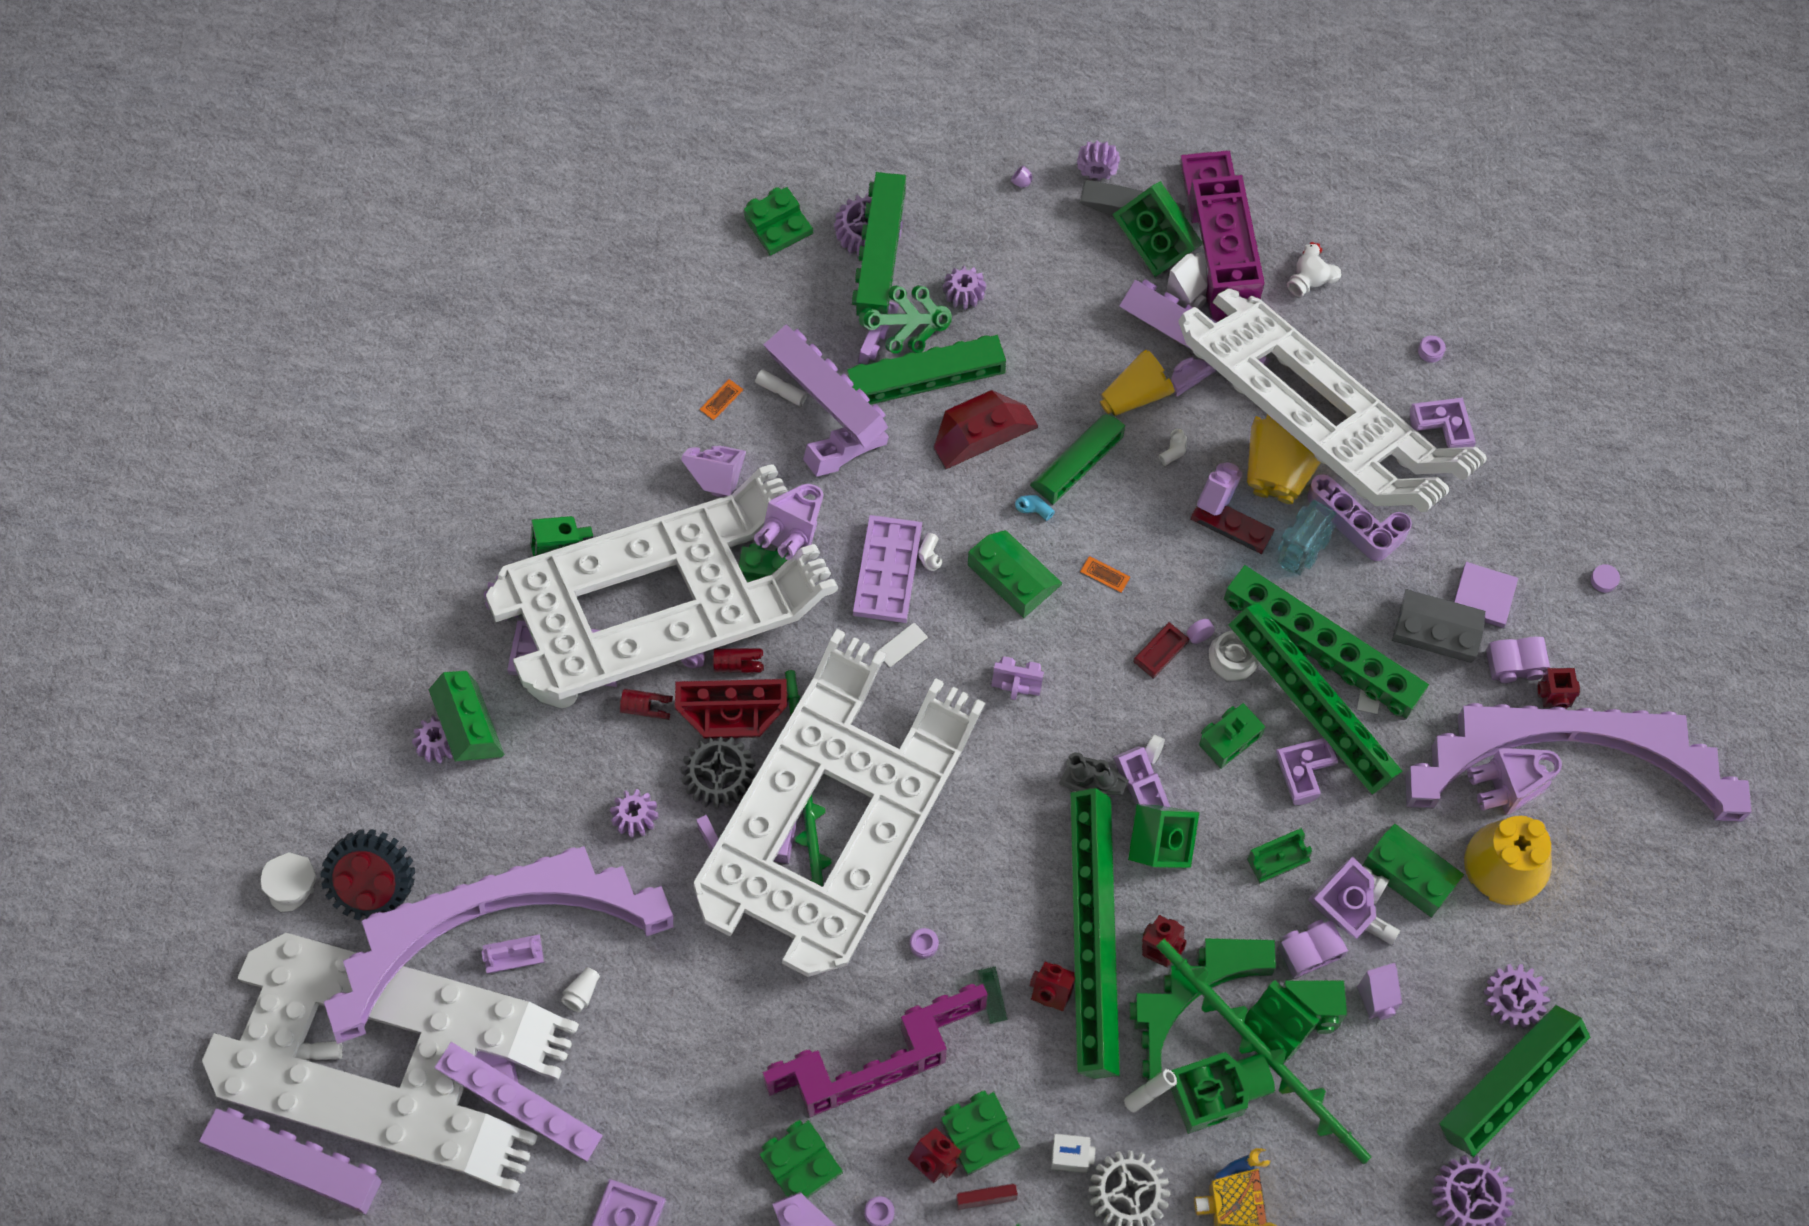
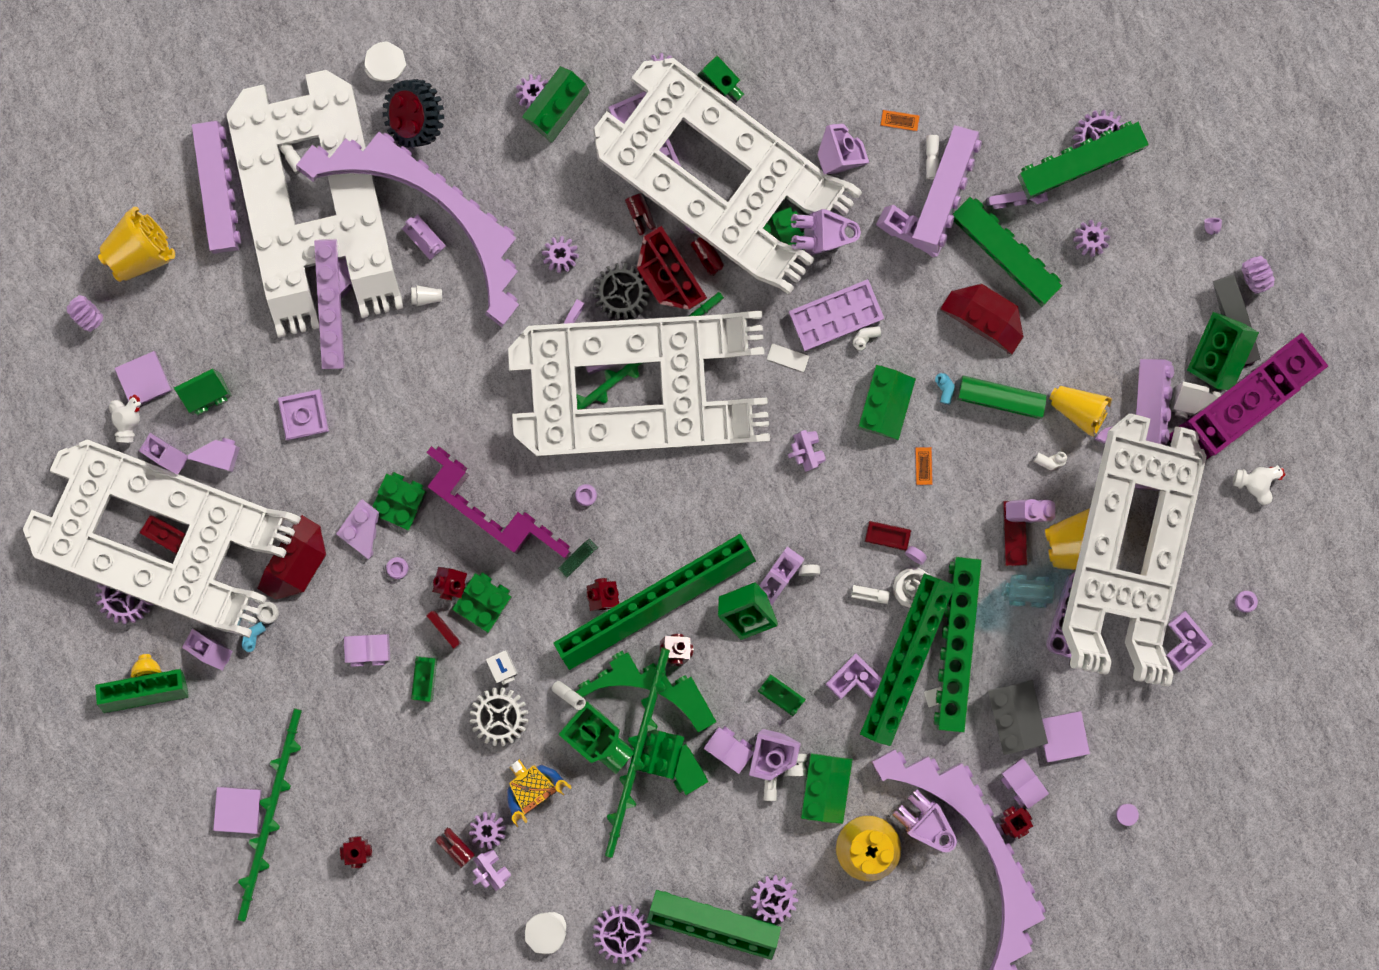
camera: 60 degrees right, 20 degrees up
(777, 220) = (1067, 70): green plate -> none
(910, 319) = (1035, 217): green plant -> none
(1089, 773) = (764, 541): dark grey connector -> none
(1217, 702) = (870, 594): none -> white piece
(1231, 735) = (850, 617): green brick -> none
(1381, 992) = (721, 809): lavender slope -> none

